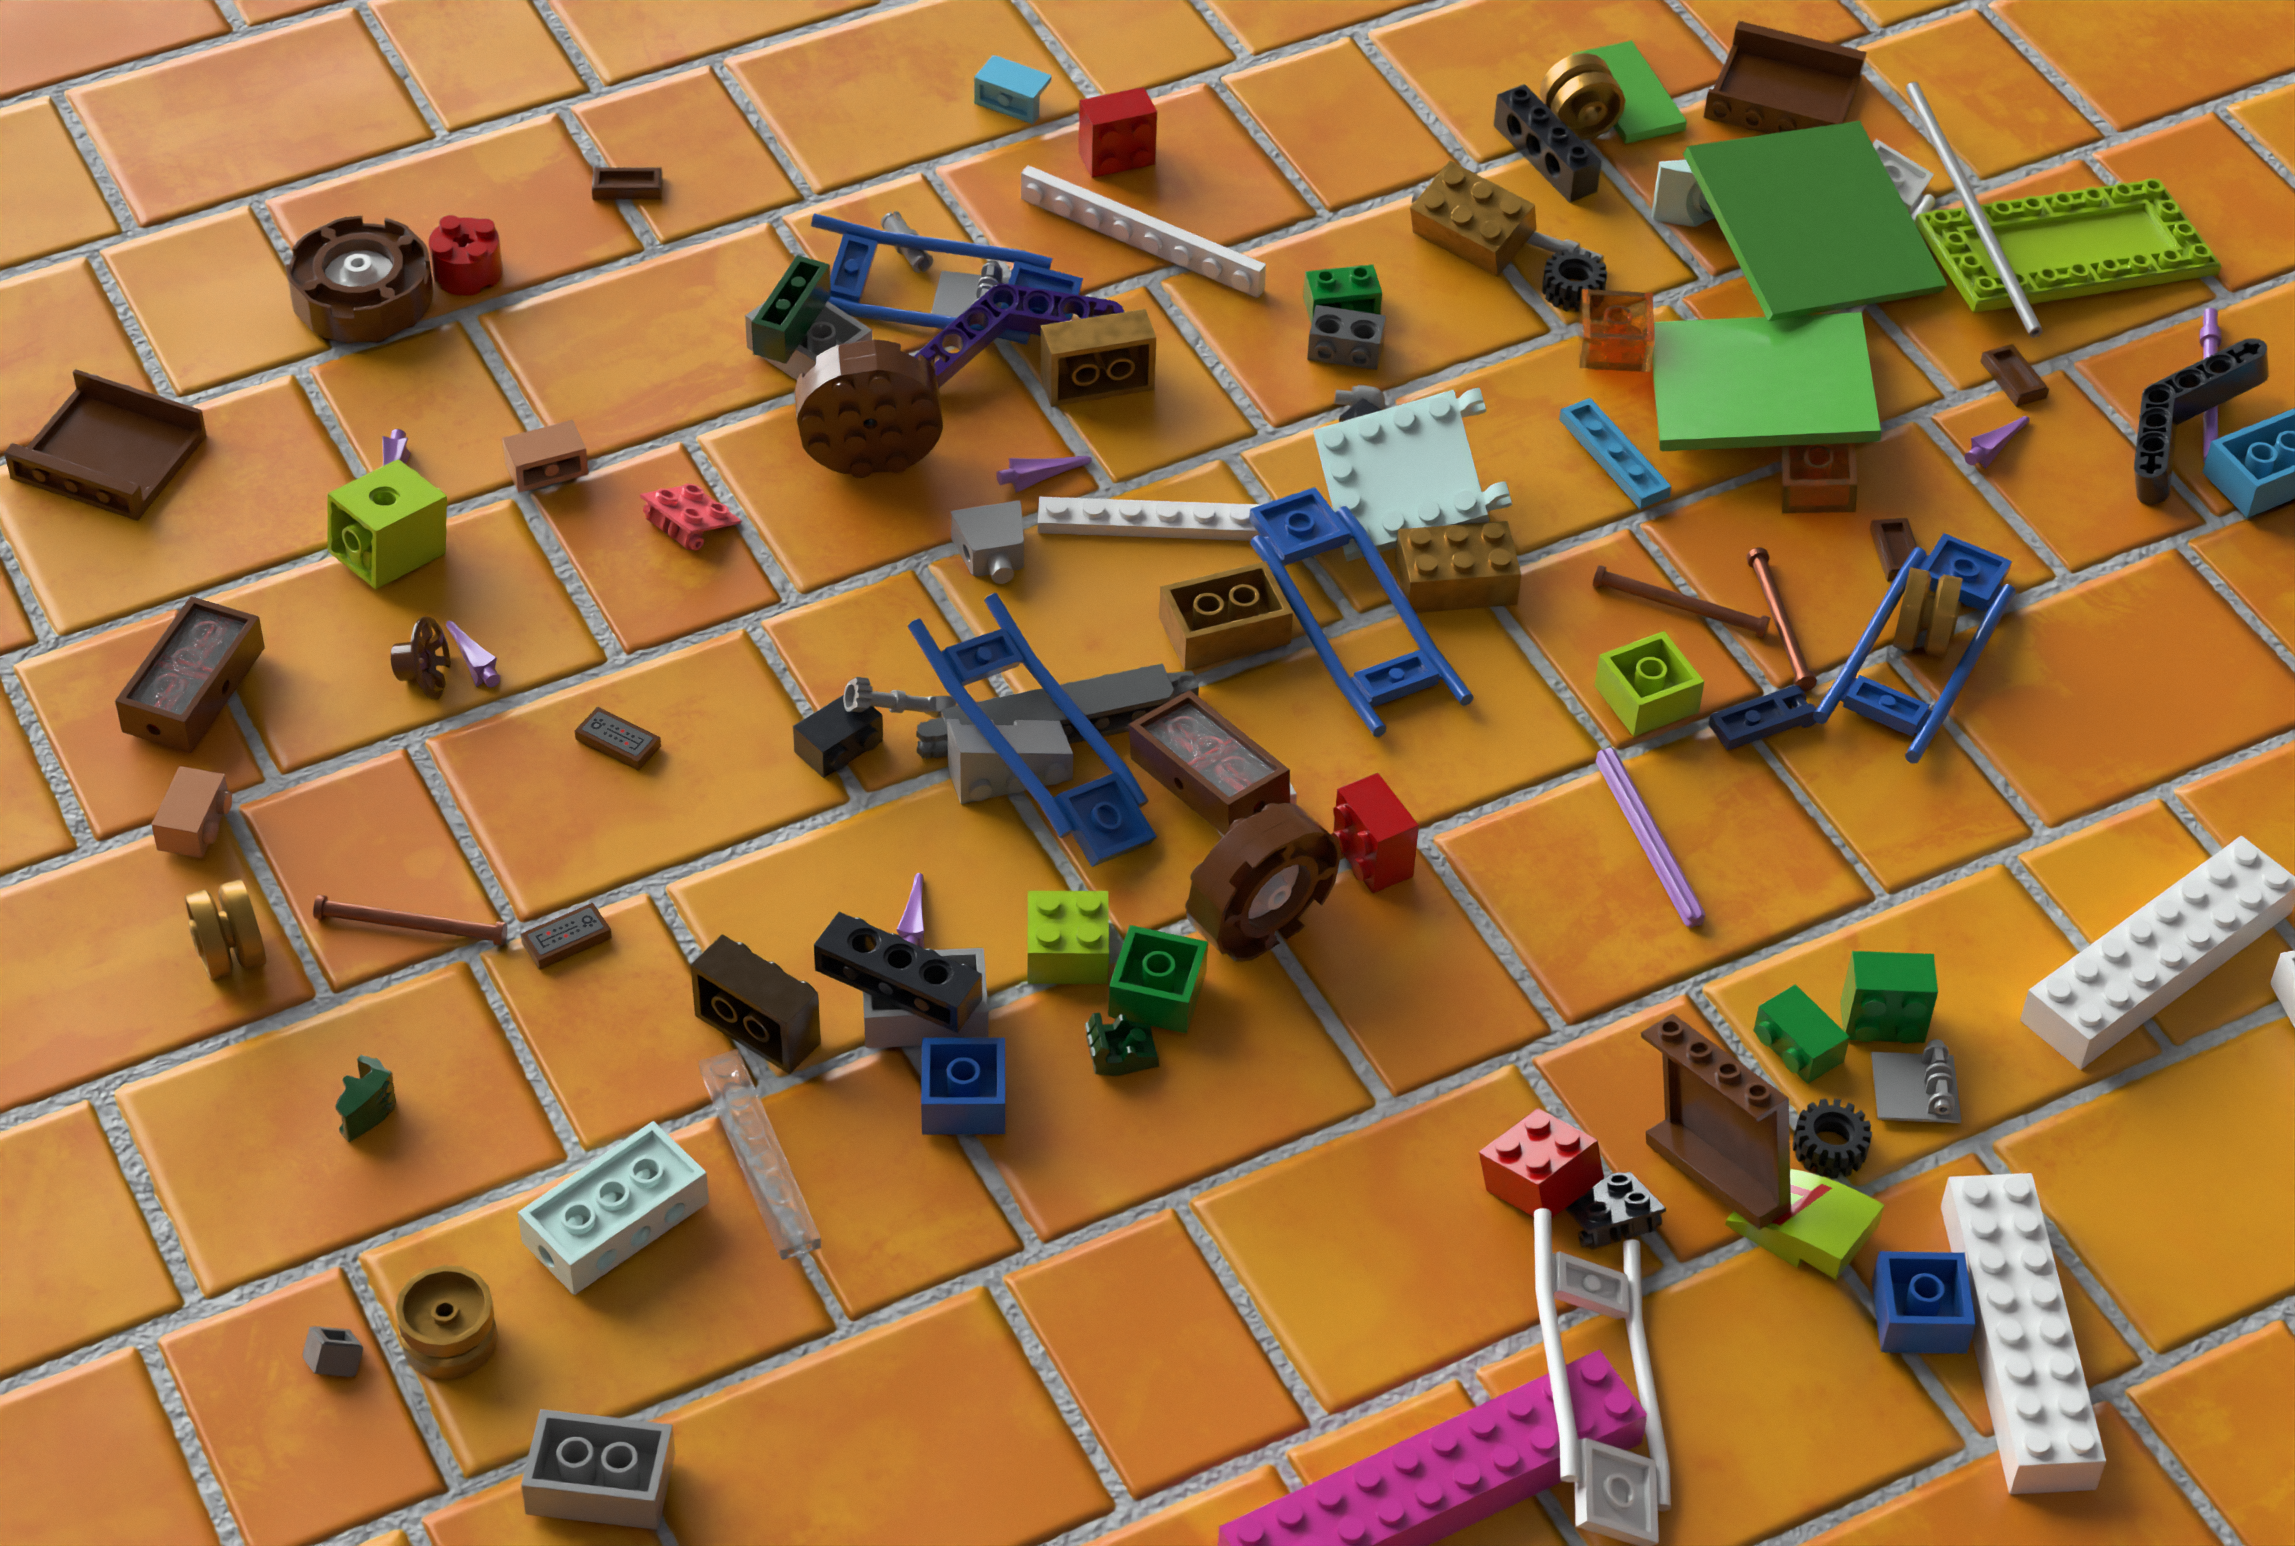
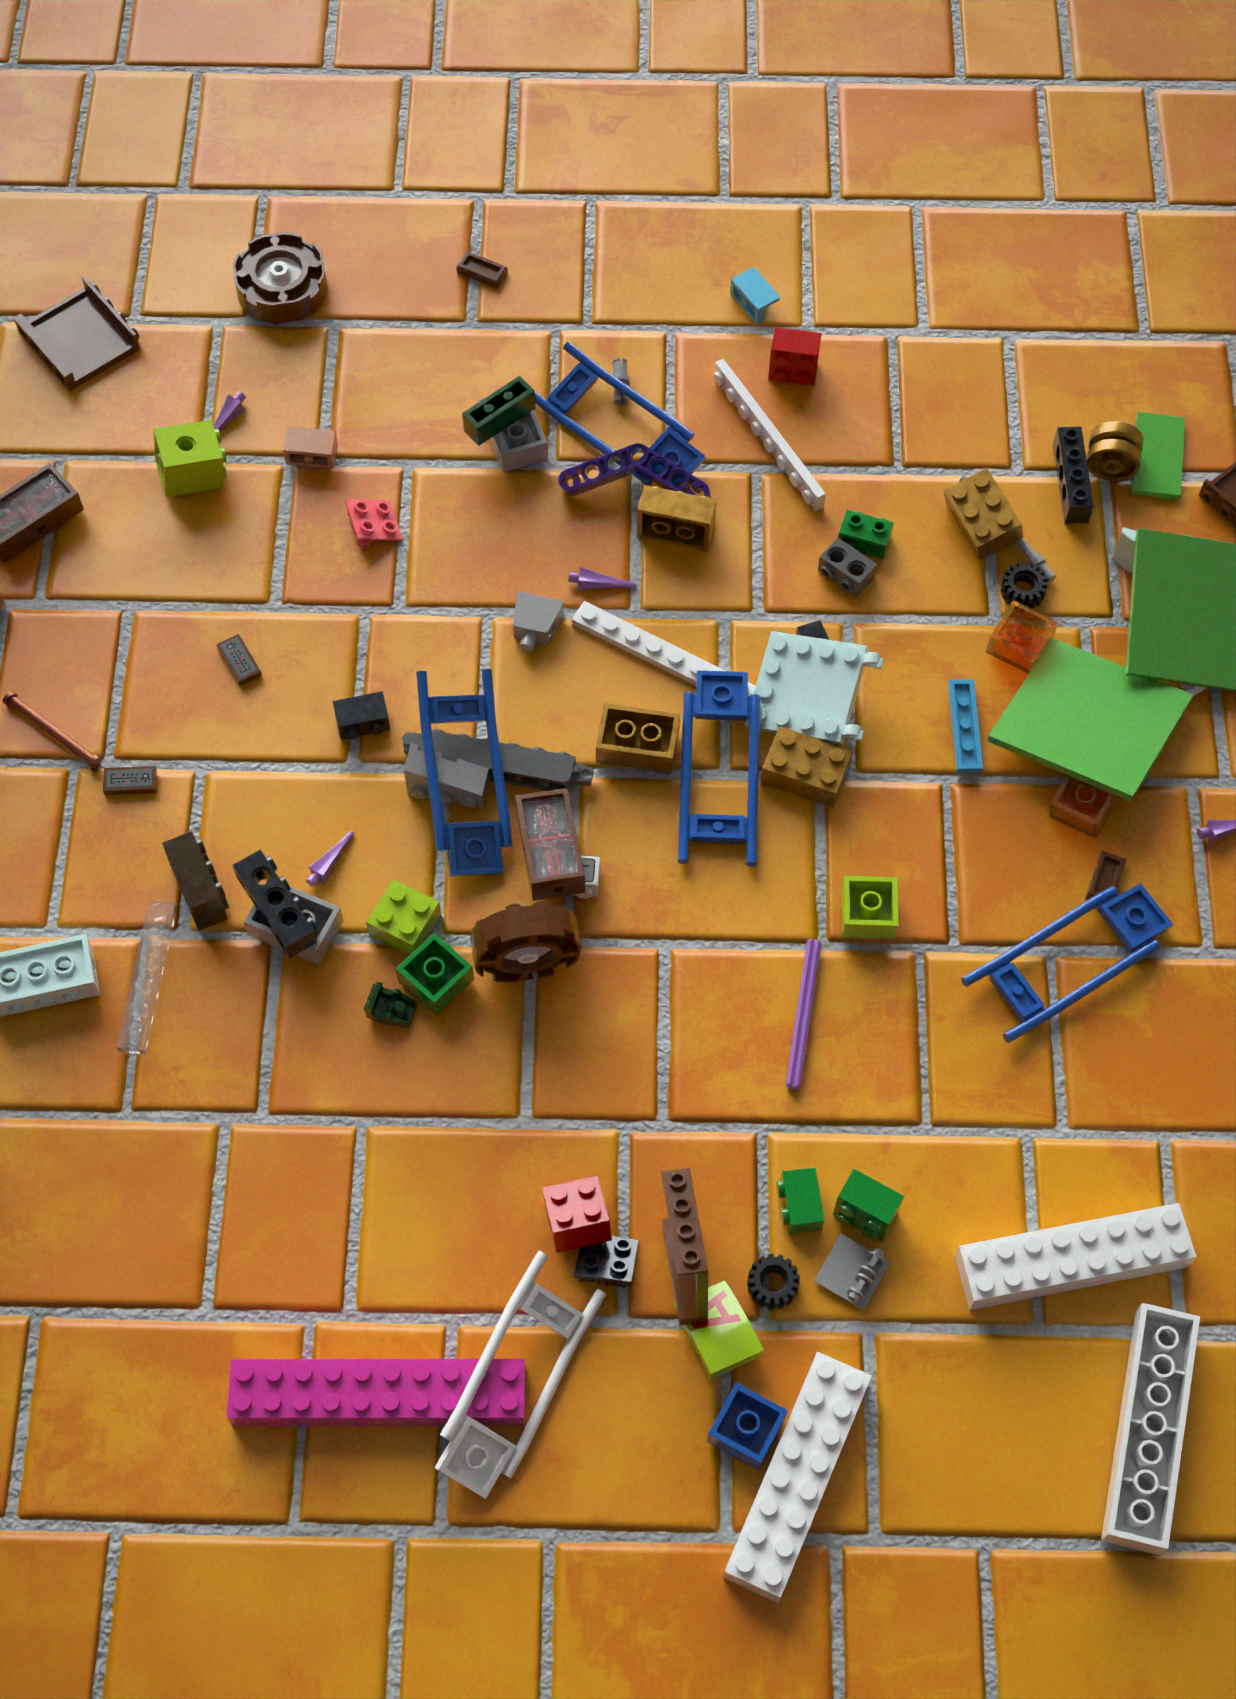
camera: 30 degrees right, 15 degrees up
(418, 657) = (158, 558): reddish brown wheel -> none
(465, 254) = (351, 284): red brick -> none
(479, 661) = (192, 570): medium lavender piece -> none
(860, 695) = (377, 700): light grey piece -> none
(868, 408) = (504, 500): reddish brown piece -> none
(960, 290) = (634, 430): light grey hinge -> none
(963, 1086) = (278, 991): blue brick -> none
(1369, 393) = (829, 616): light grey cylinder -> none
(1375, 832) = (624, 935): red brick -> none
(1681, 601) = (975, 894): copper bar -> none
(1758, 559) = (978, 946): copper bar -> none
(1762, 717) = (931, 962): dark blue plate -> none
(1927, 612) = (1083, 939): pearl gold wheel -> none

